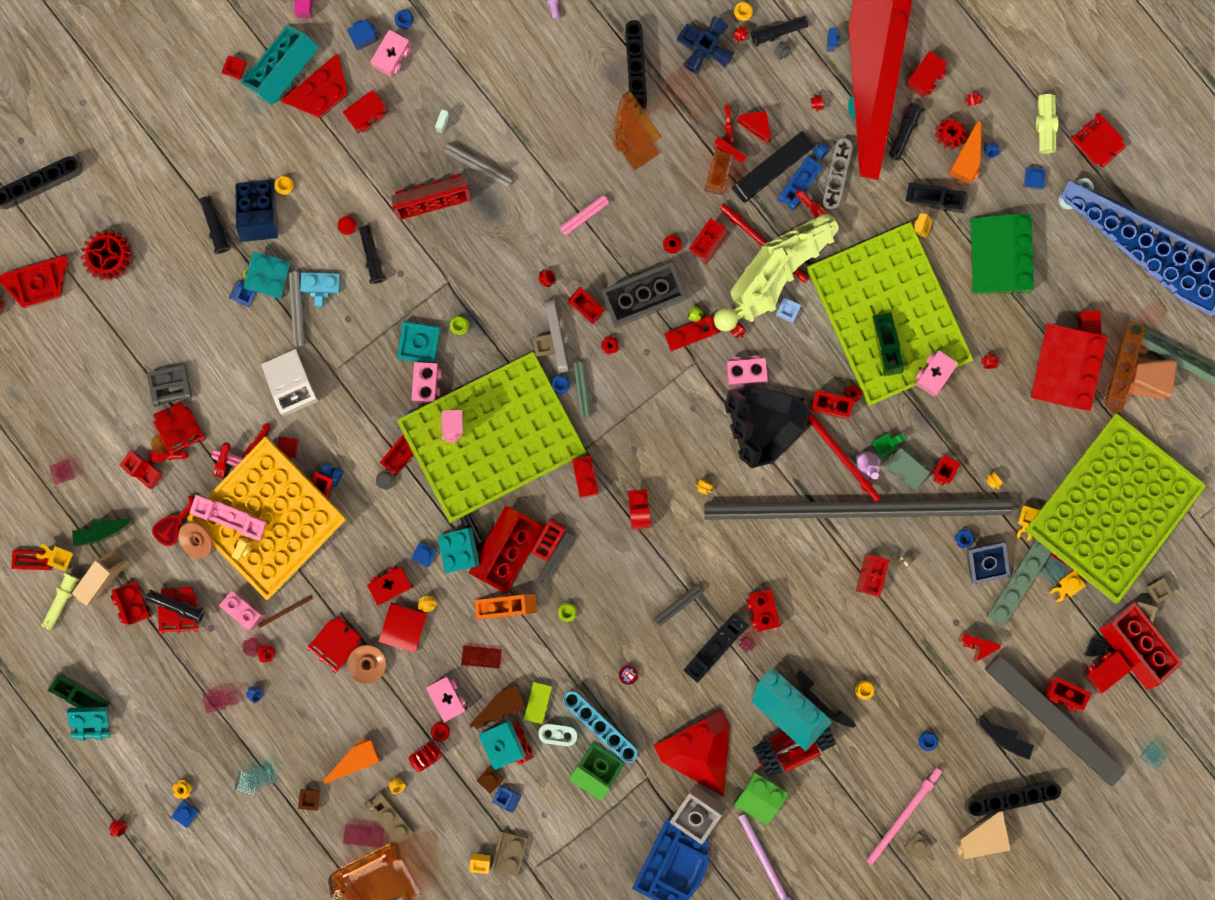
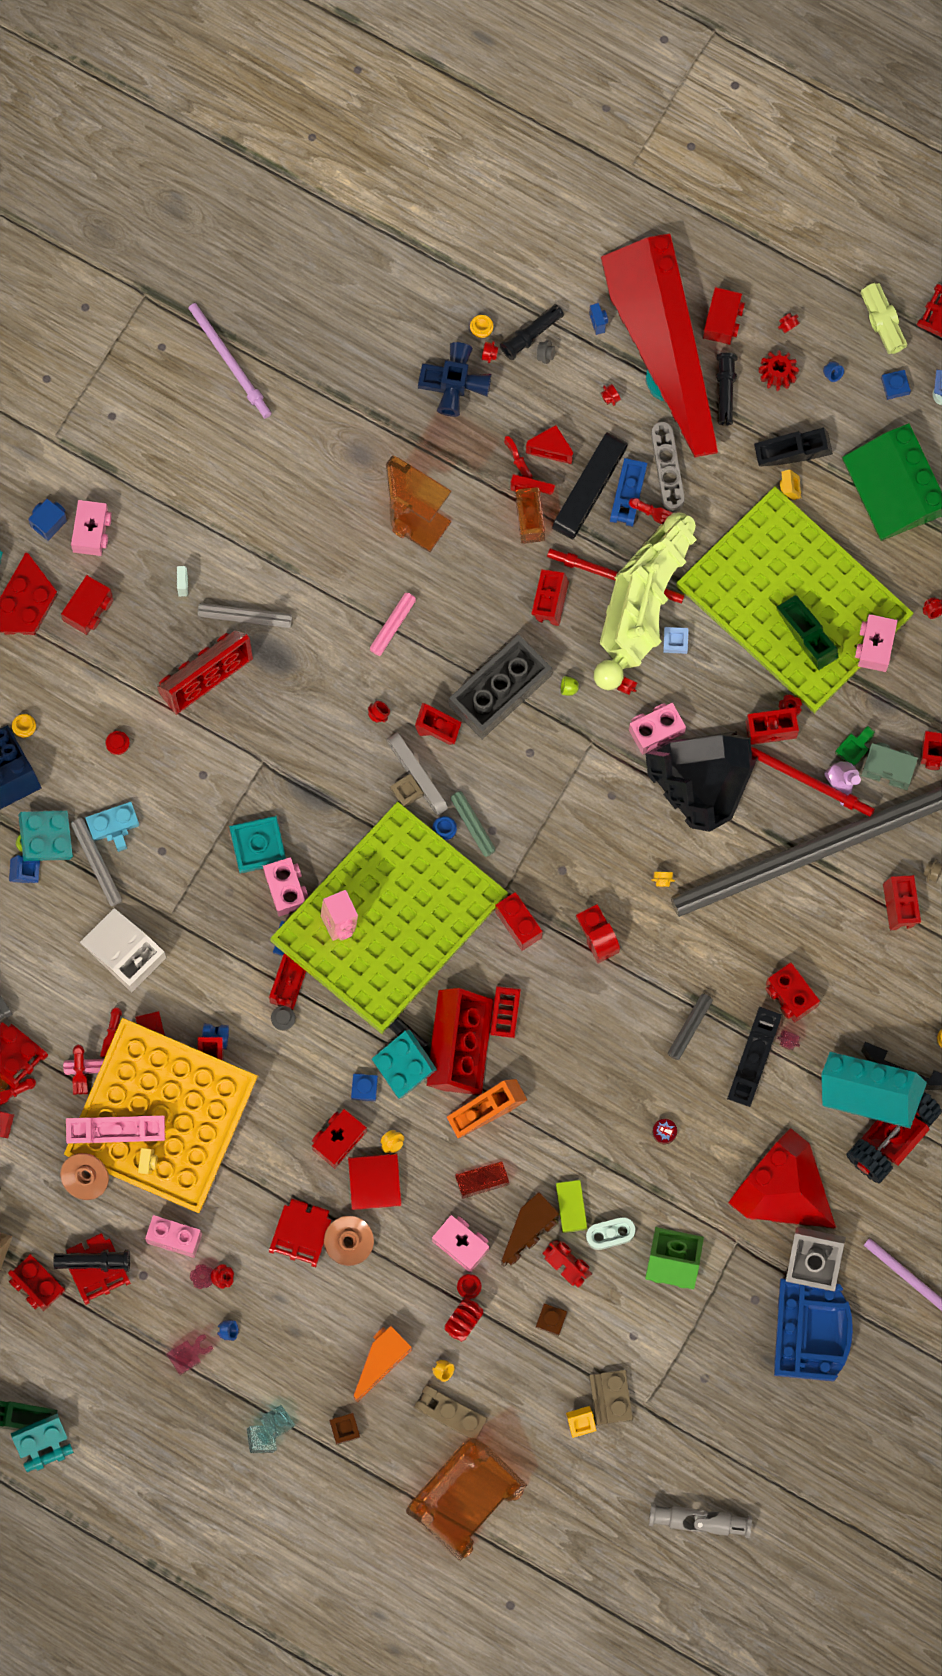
camera: 20 degrees left, 10 degrees down
(117, 828) = (126, 1555): red plate -> none
(167, 529) = (44, 1177): piece -> none
(182, 794) = (183, 1485): yellow plate -> none
(185, 814) = (201, 1507): blue plate -> none
(285, 611) = (222, 1223): reddish brown piece -> none
(363, 835) = (427, 1446): clear pink plate -> none
(373, 263) = (166, 774): black pin -> none
(404, 19) = (89, 484): blue plate -> none
(459, 325) = (297, 806): lime plate -> none
(502, 745) = (549, 1270): teal plate -> none
(506, 799) = (581, 1334): blue slope -> none
(556, 557) = (522, 1028): dark grey axle -> none
(567, 612) = (562, 1086): lime plate -> none
(604, 735) = (666, 1212): medium azure beam -> none
(609, 340) = (484, 766): red plate -> none
(638, 59) = (379, 424): black beam -> none
(672, 250) = (509, 624): red plate -> none
(691, 333) = (573, 710): red plate -> none
(761, 798) = (881, 1211): bright green slope -> none
(821, 151) = (637, 446): blue hinge -> none
(968, 160) = (811, 392): orange slope -> none

